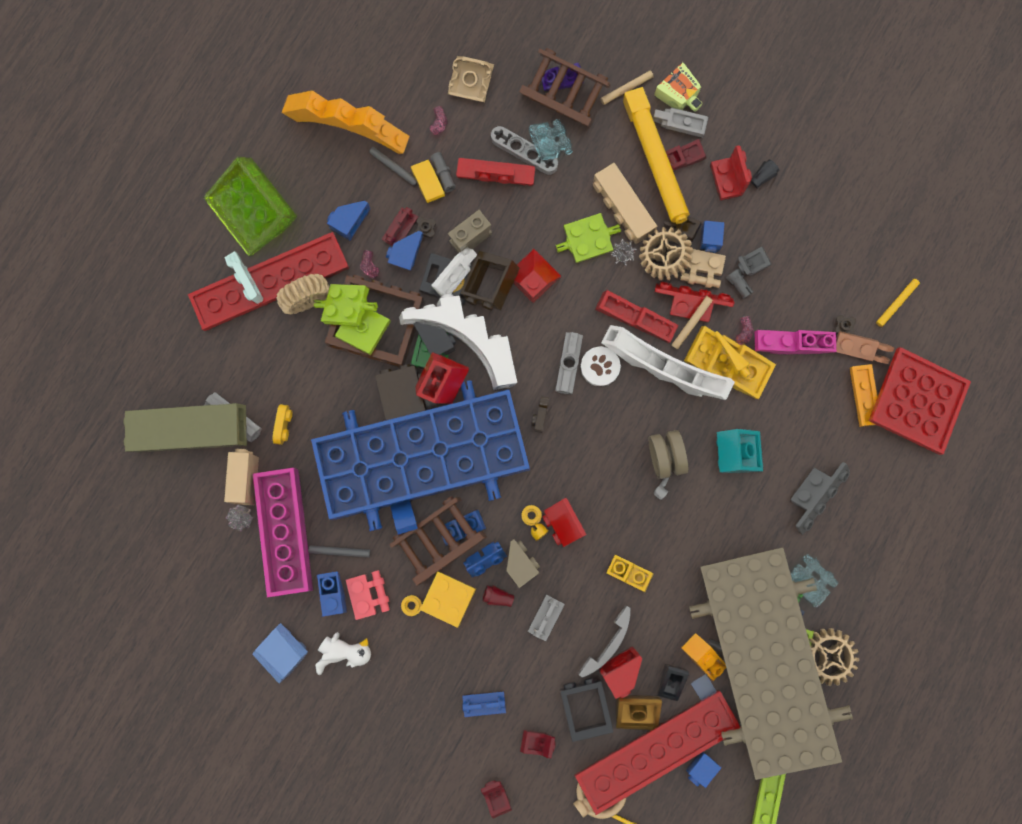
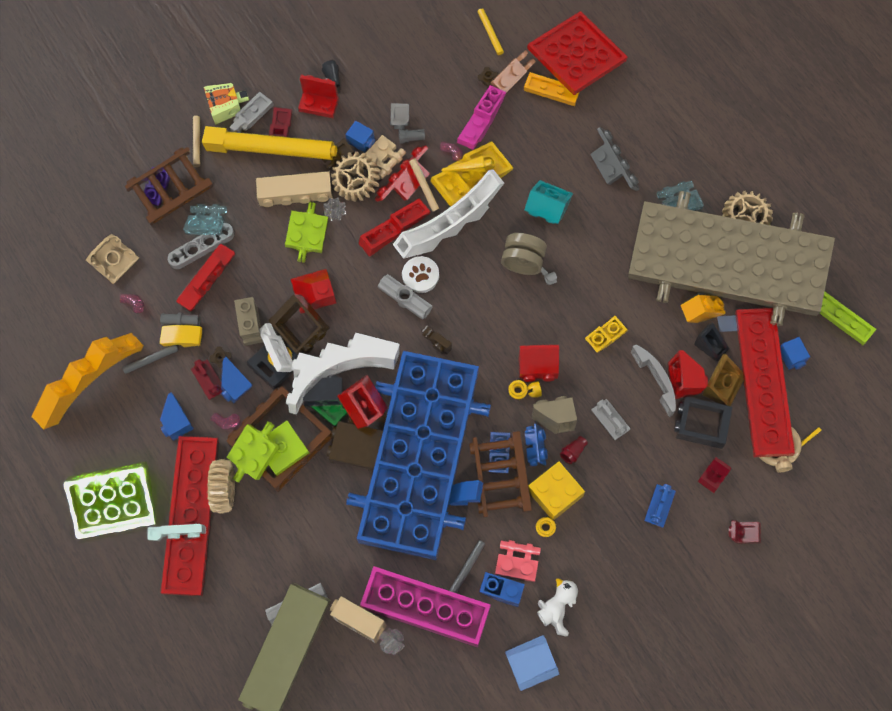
camera: 65 degrees left, 10 degrees down
(280, 431) = (321, 559): yellow plate -> none

